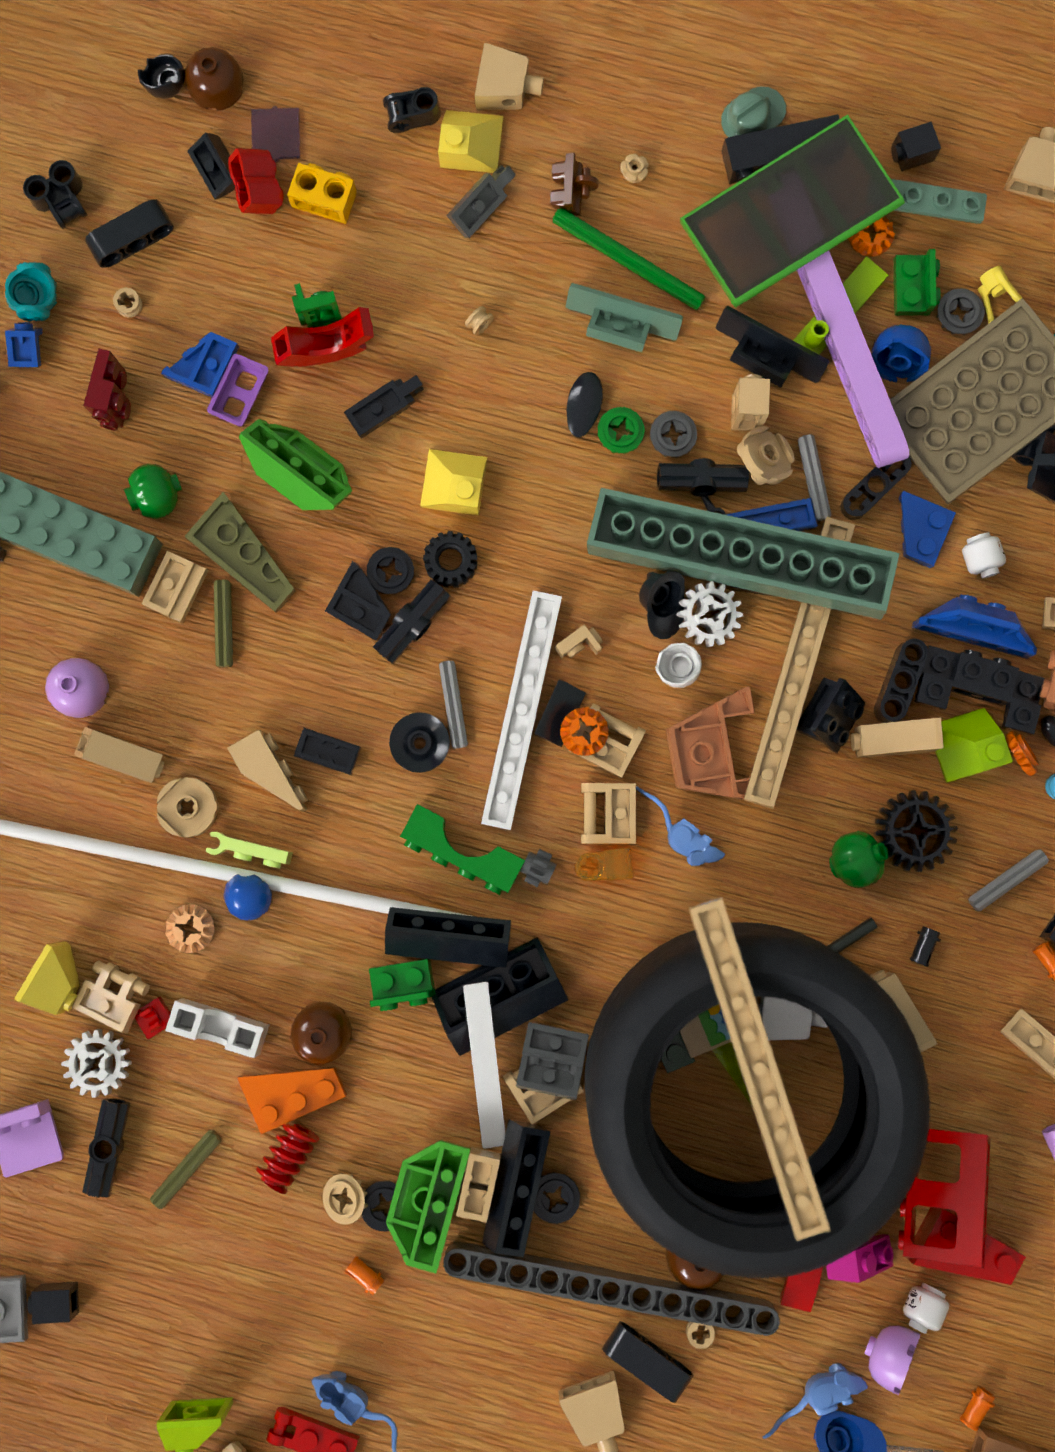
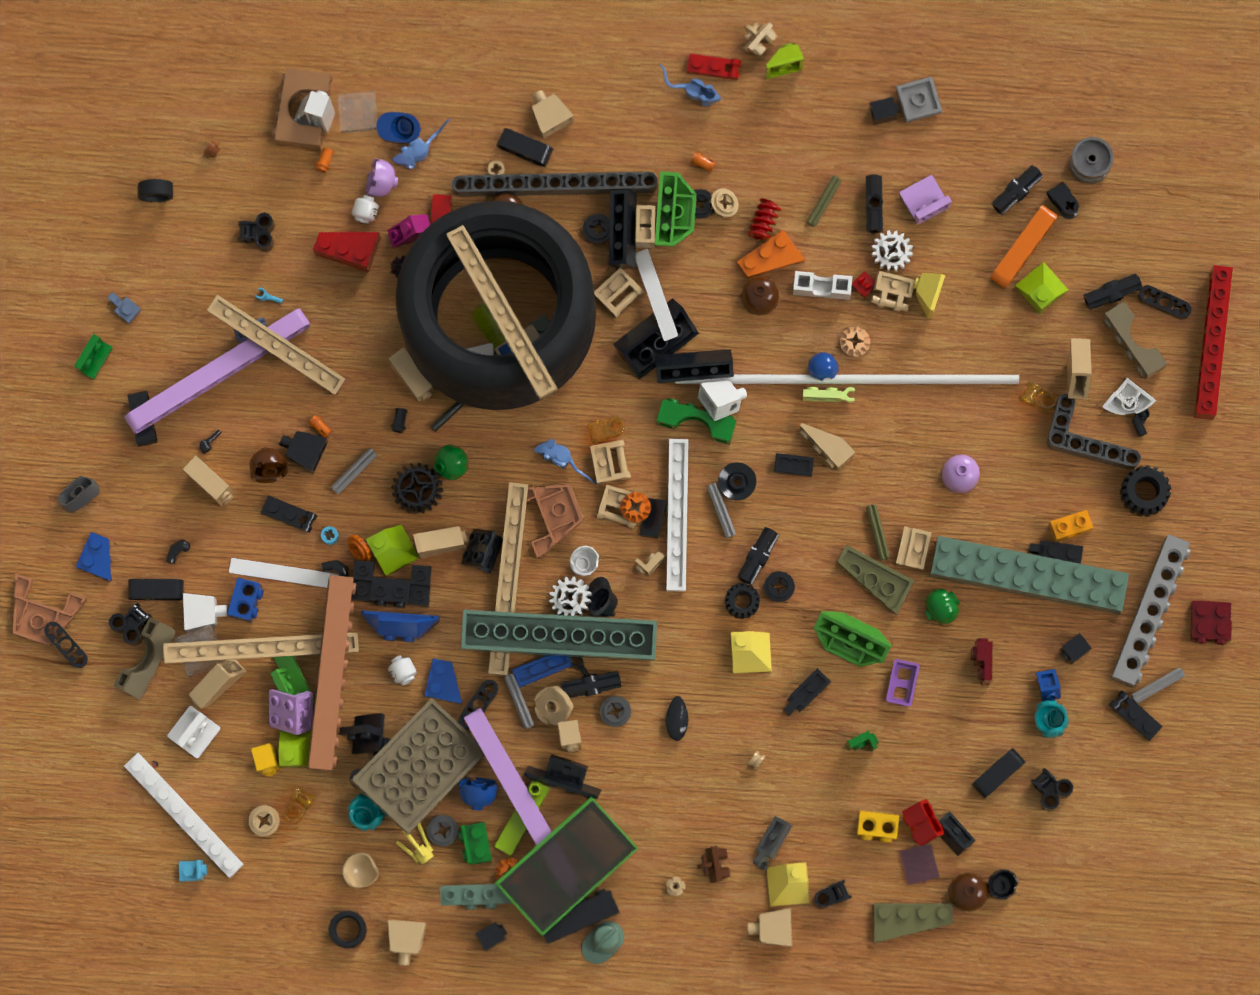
camera: 175 degrees right, 5 degrees down
(118, 300) = (989, 722): tan bush -> none
(119, 755) = (924, 435): tan slope -> none
(170, 805) = (883, 408): tan plate -> none
(203, 364) = (929, 695): blue wing -> none
(310, 61) = (902, 919): none -> olive wing
(325, 343) = (854, 723): red arch -> none
(359, 604) = (793, 560): black wing -> none
(402, 983) = (716, 333): green bracket -> none
(416, 875) = (721, 398): none -> white torso
(538, 868) = (647, 419): dark grey gear -> none
(552, 1061) = (615, 306): dark grey slope -> none
(613, 419) = (657, 702): green gear -> none
(621, 319) = (665, 777): sand green bracket -> none
(628, 259) = (666, 823): green axle -> none
(911, 671) = (446, 570): black beam -> none
(965, 1197) = (354, 274): red window -> none

